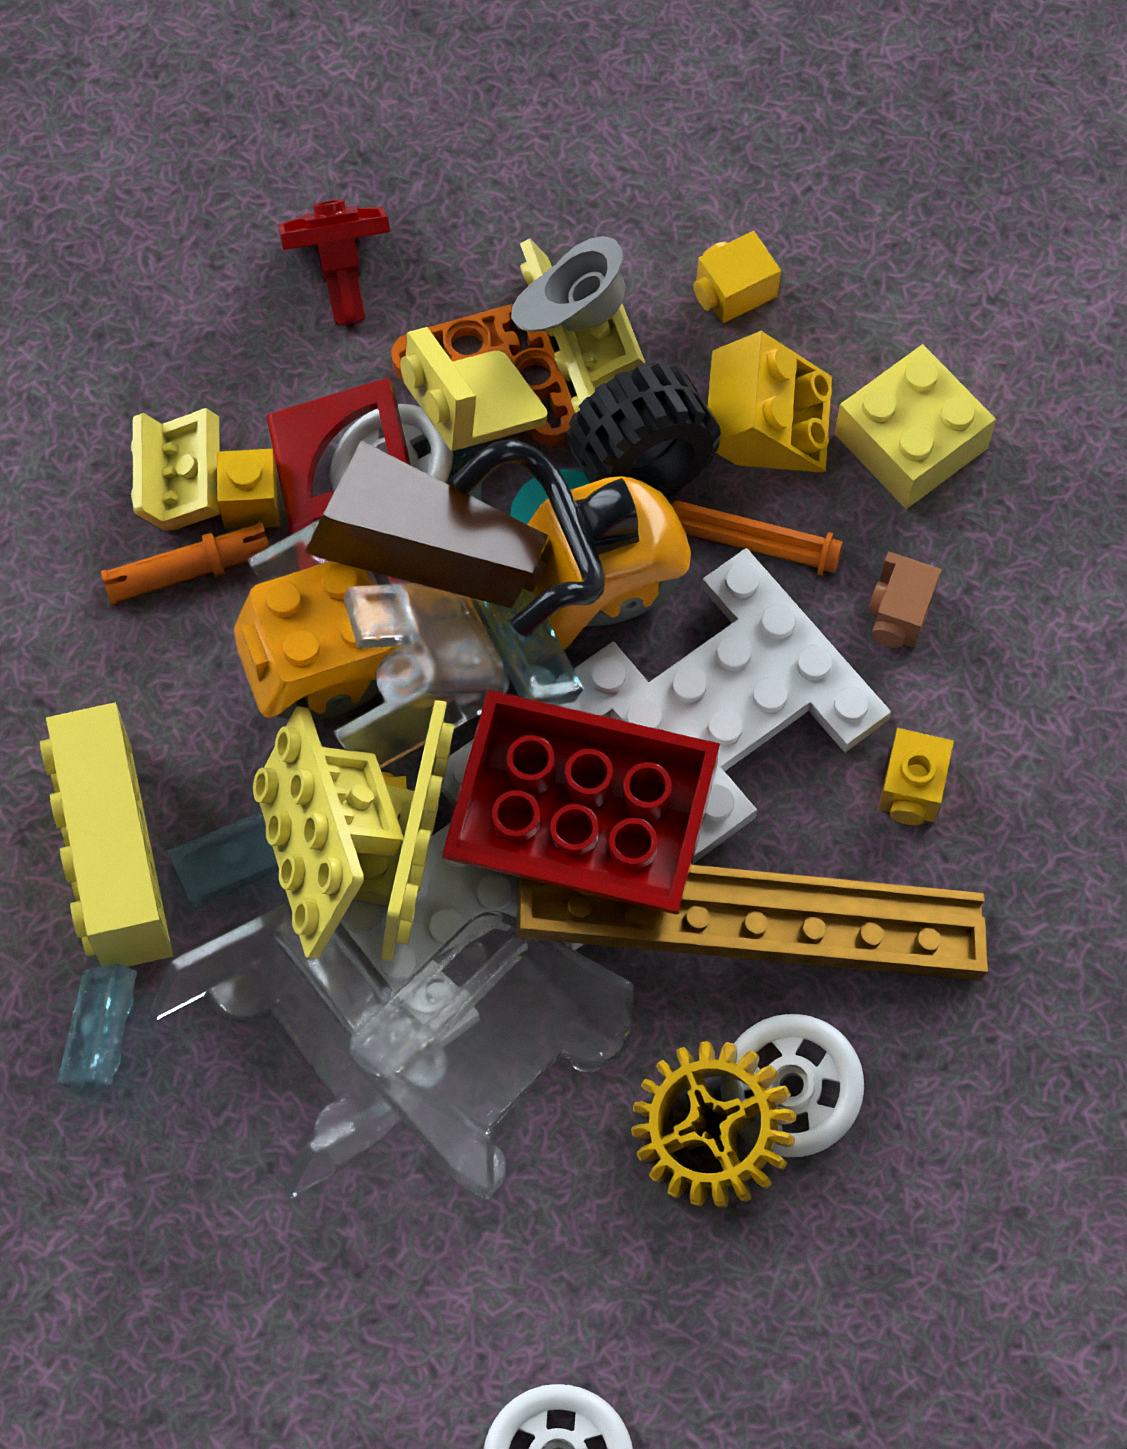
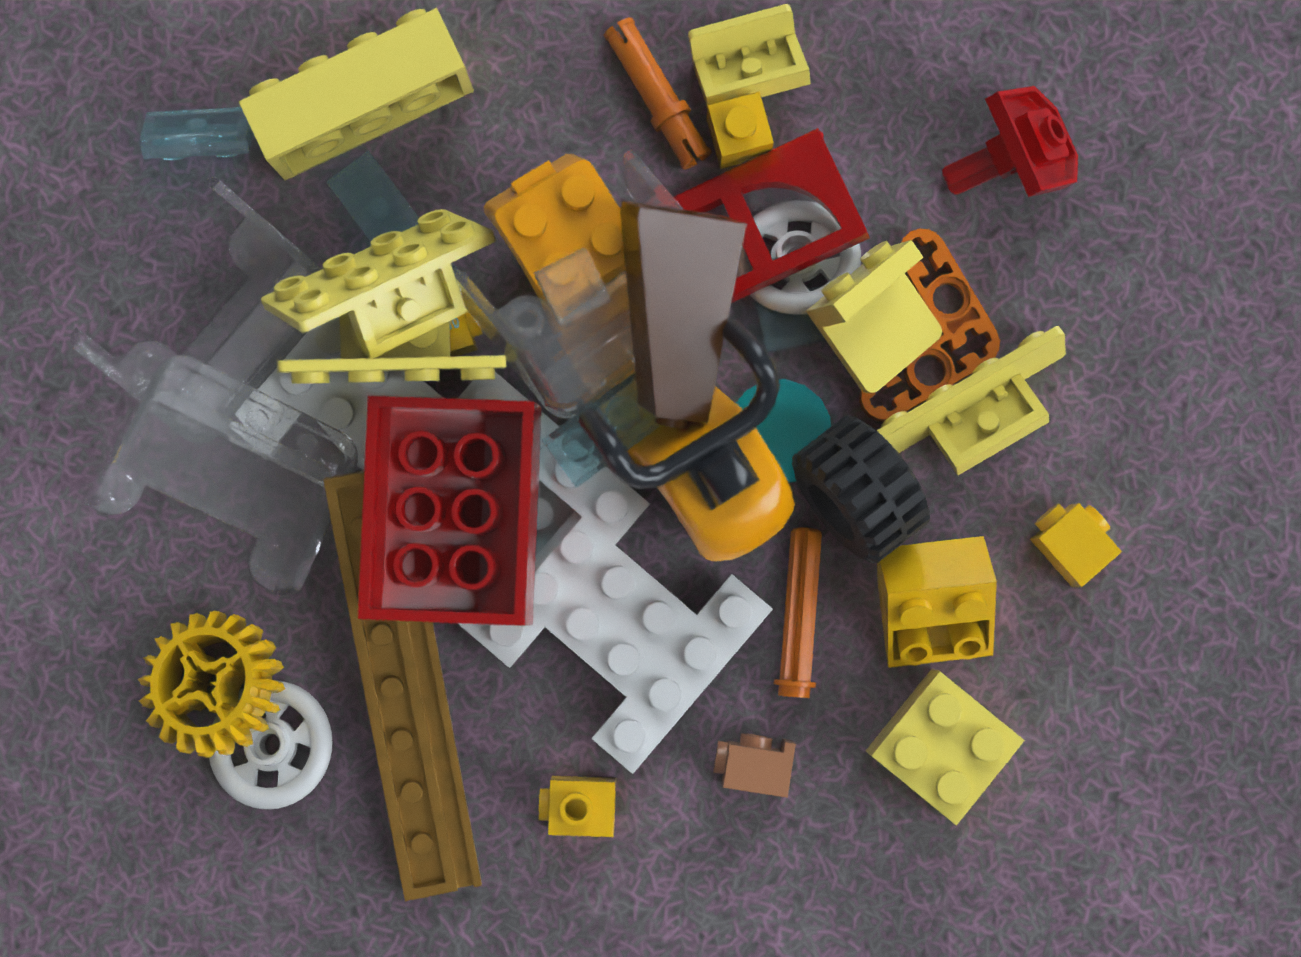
camera: 80 degrees right, 20 degrees up
(575, 292) = (1005, 389): light grey piece -> none

